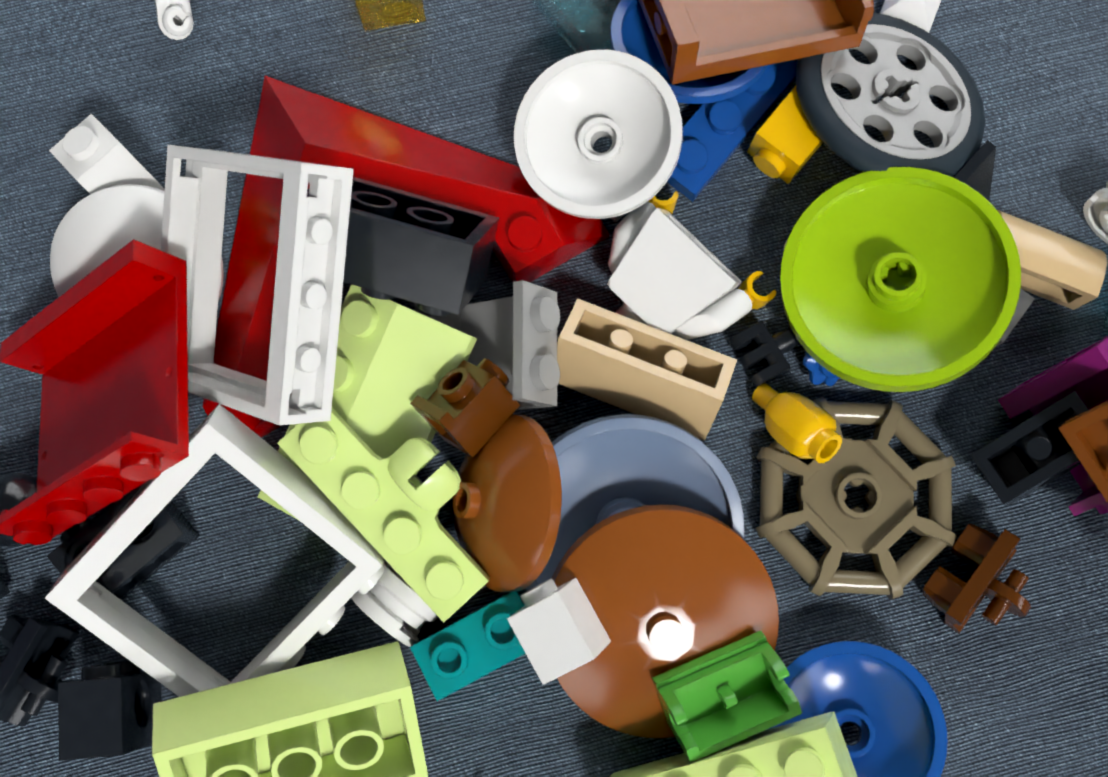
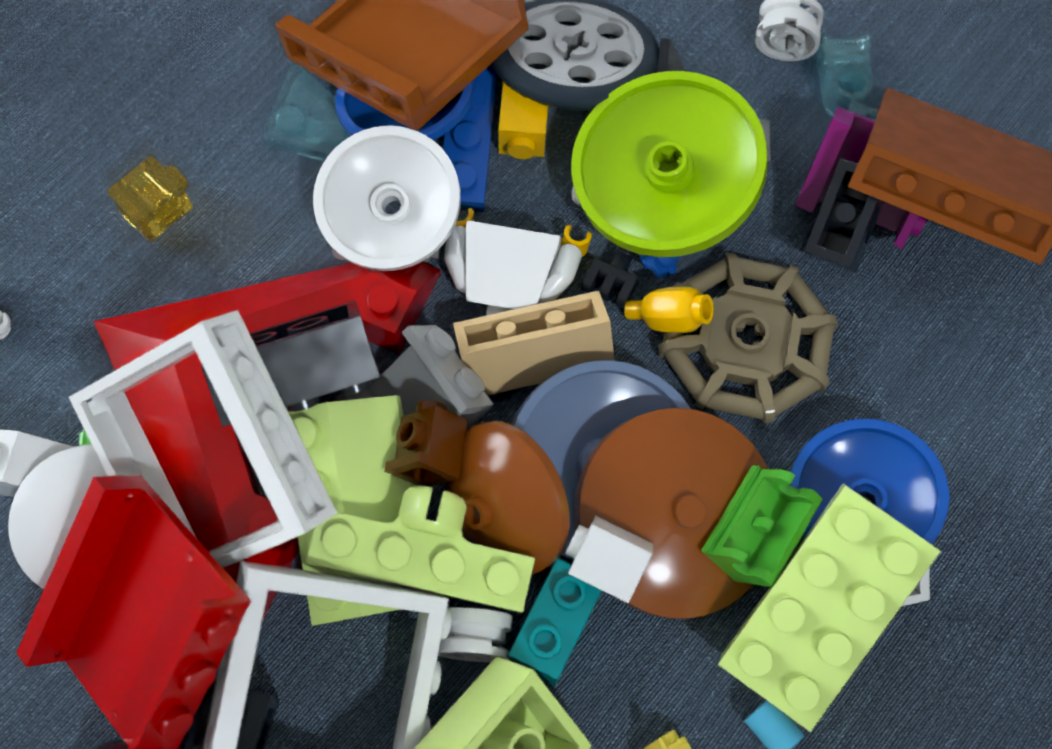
camera: 35 degrees left, 10 degrees down
(990, 557) = (868, 315): reddish brown hips -> none
(1056, 264) = (772, 93): tan brick -> none

